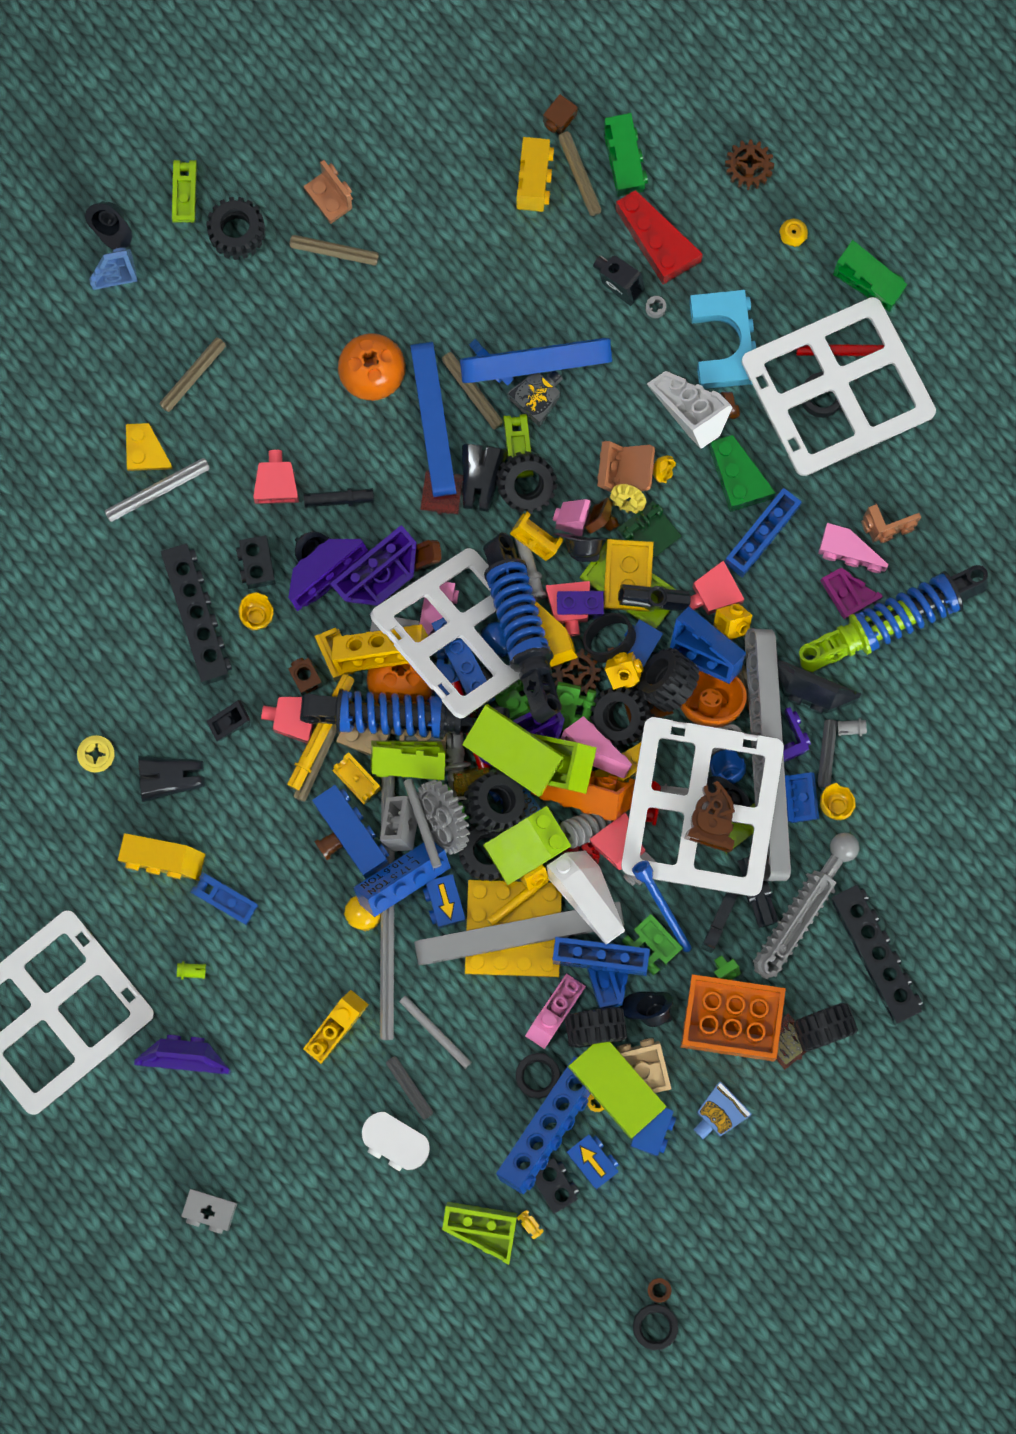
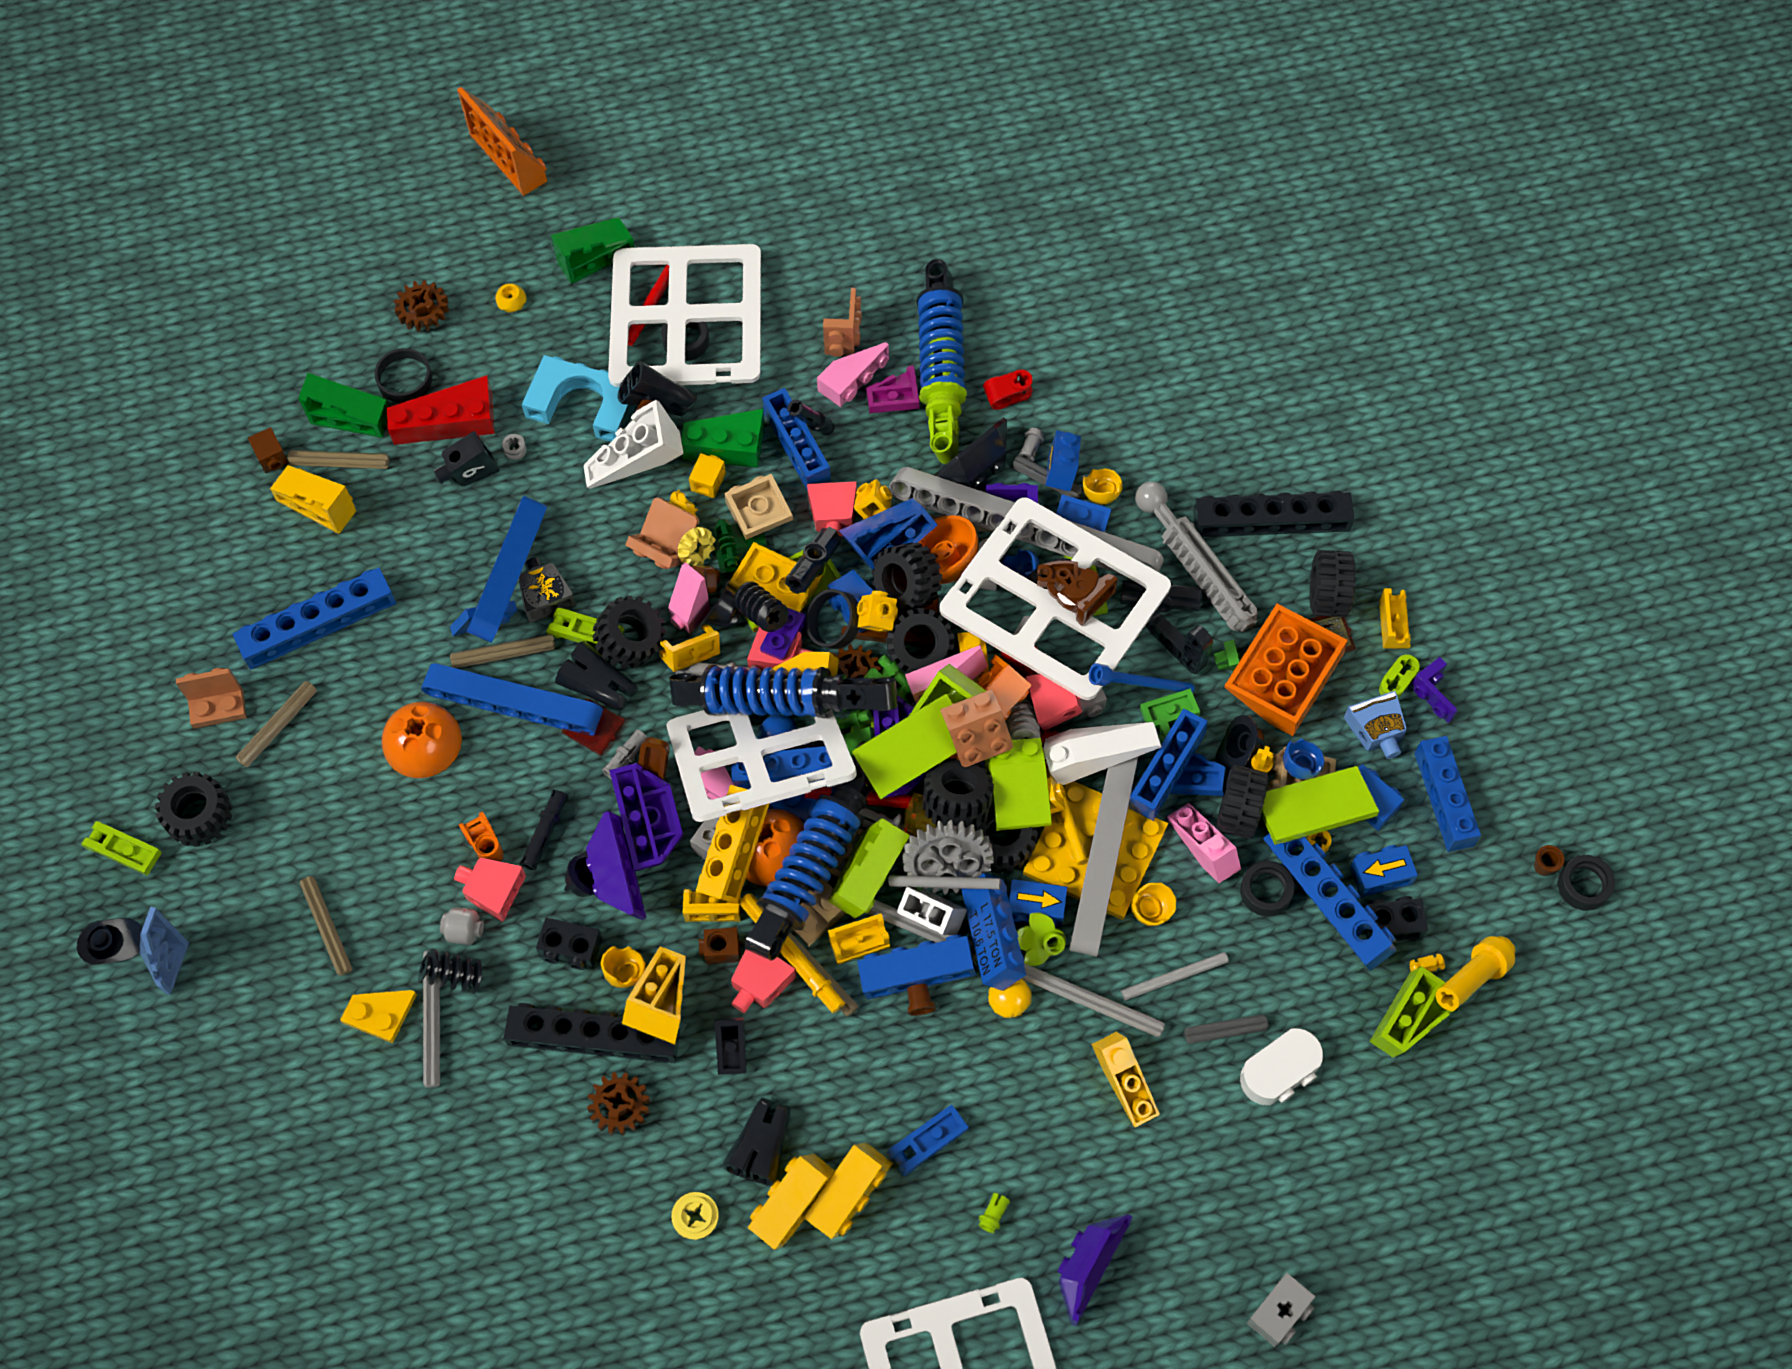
camera: 65 degrees left, 15 degrees down
(135, 818) = (790, 1200): none -> yellow wedge
(161, 657) = (630, 1106): none -> reddish brown gear
(196, 486) = (451, 969): none -> black piece
(235, 475) = (461, 926): none -> light grey head
(236, 649) = (657, 997): none -> yellow wedge
(313, 452) = (481, 836): none -> orange piece
(416, 914) = (1035, 937): none -> lime plate
(428, 529) = (626, 753): none -> light grey pin
(472, 270) = (308, 630): none -> blue brick
(483, 992) = (1153, 904): none -> yellow hair
(545, 792) = (977, 728): none -> nougat bracket
(553, 1271) = (1489, 960): none -> yellow piece
(590, 575) = (761, 607): none -> black piece
(639, 1030) = (1263, 760): none -> yellow axle
(651, 1061) = (1303, 759): none -> blue hair
(679, 161) = (403, 353): none -> black tyre
(682, 1189) = (1447, 794): none -> blue brick
(688, 530) = (758, 506): none -> tan plate
(700, 475) = (707, 475): none -> yellow brick
(748, 391) = (649, 384): none -> black piece
(771, 1120) = (1394, 674): none -> lime beam
(783, 539) = (814, 419): none -> black pin
(783, 1139) = (1425, 689): none -> dark purple bracket
(823, 1092) = (1394, 620): none -> yellow hinge
(842, 760) = (1063, 460): none -> blue brick
(892, 682) = (1008, 390): none -> red piece
(936, 150) = (502, 144): none -> orange slope

